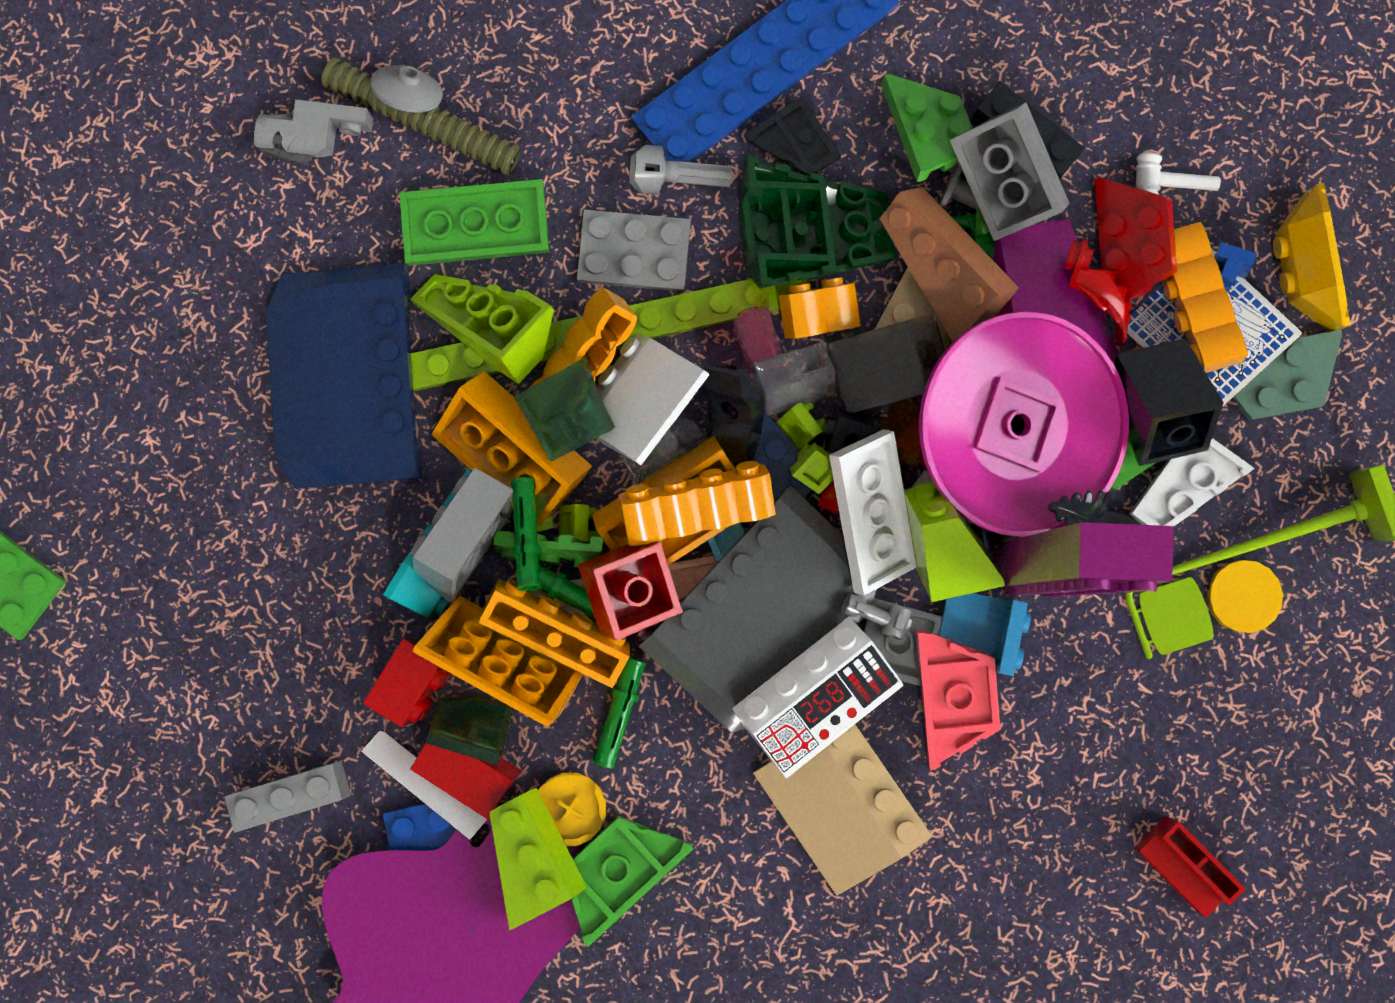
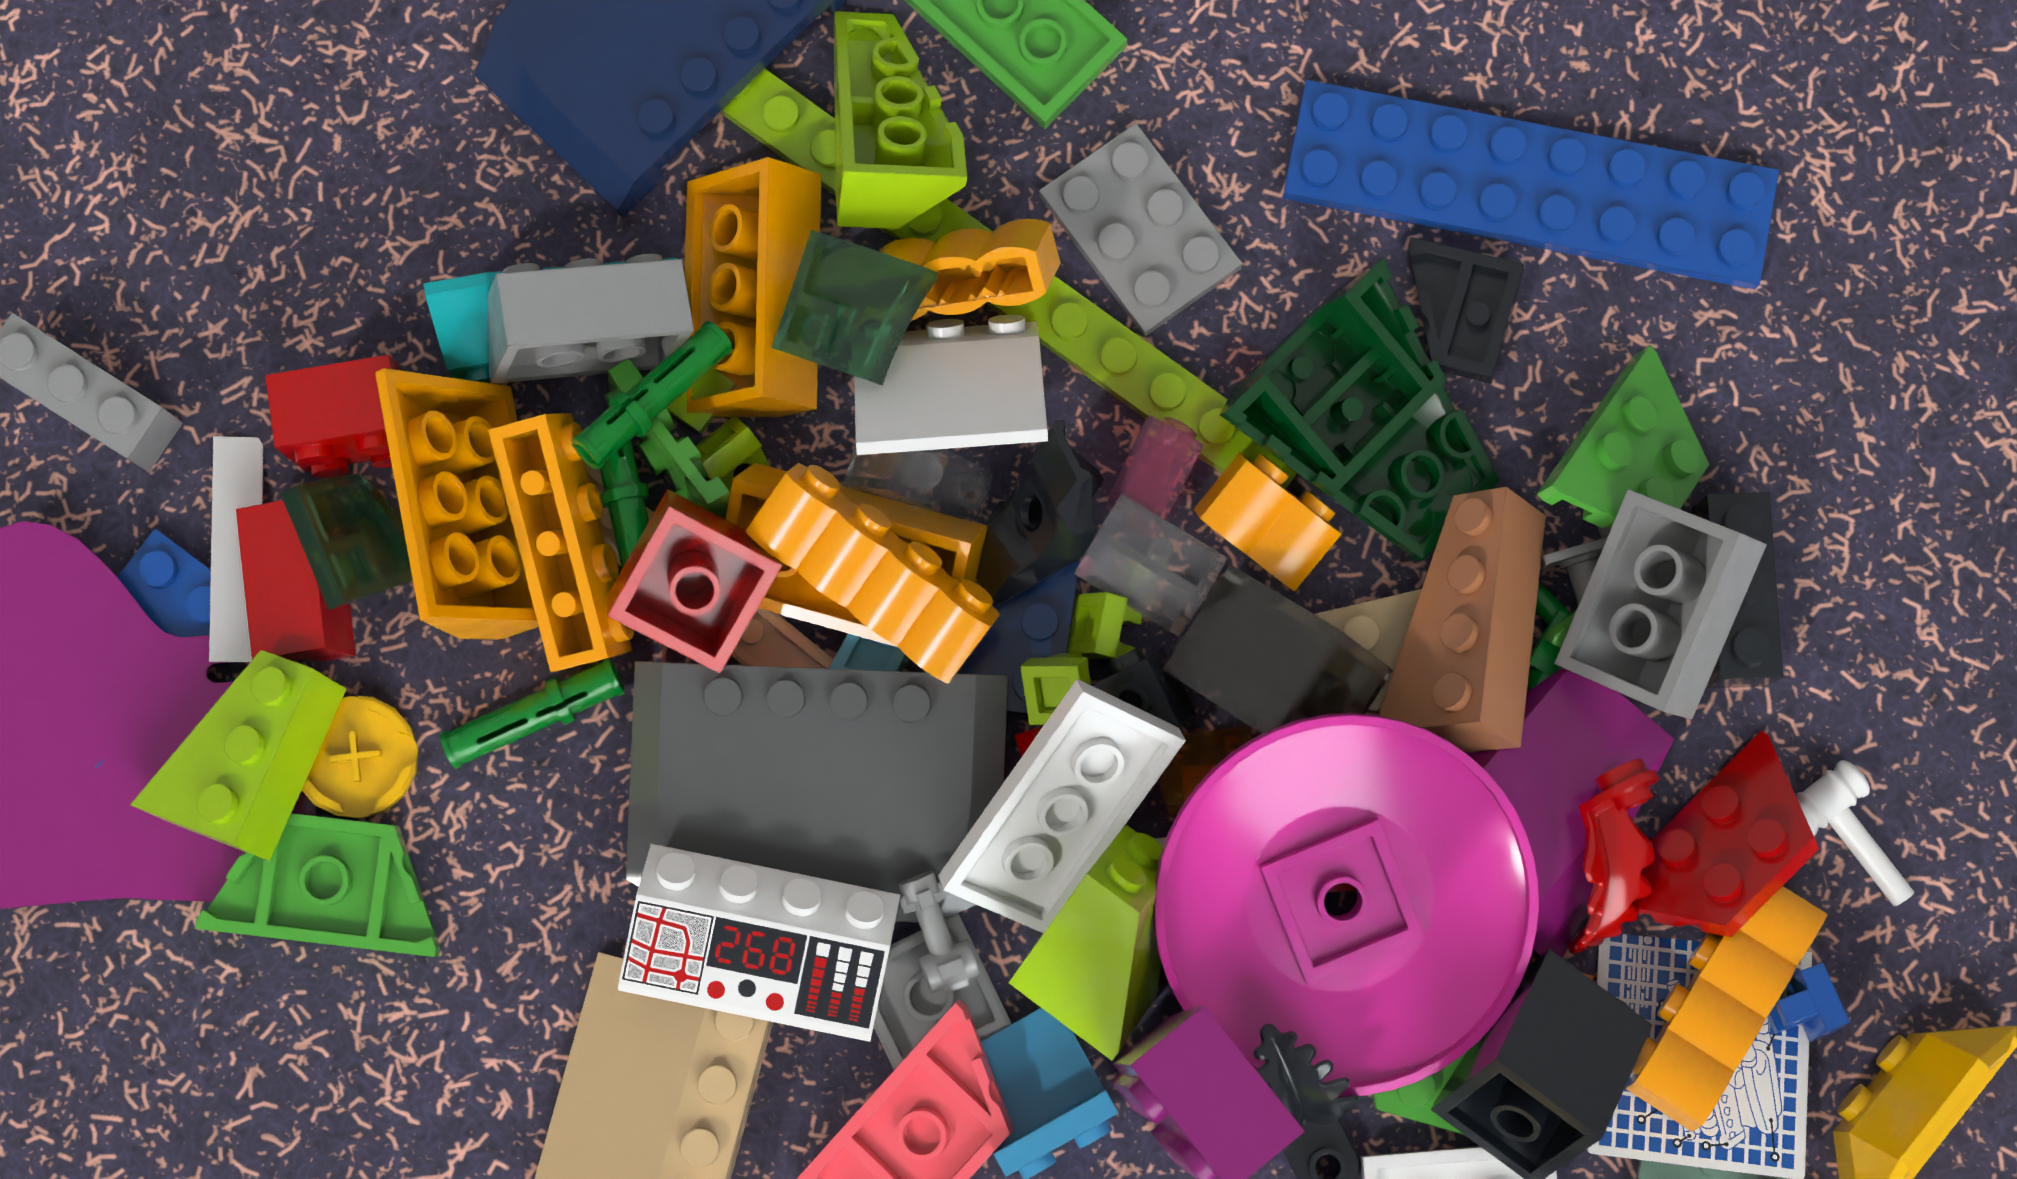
camera: 50 degrees right, 5 degrees down
(672, 171) = (1283, 190): light grey piece -> none

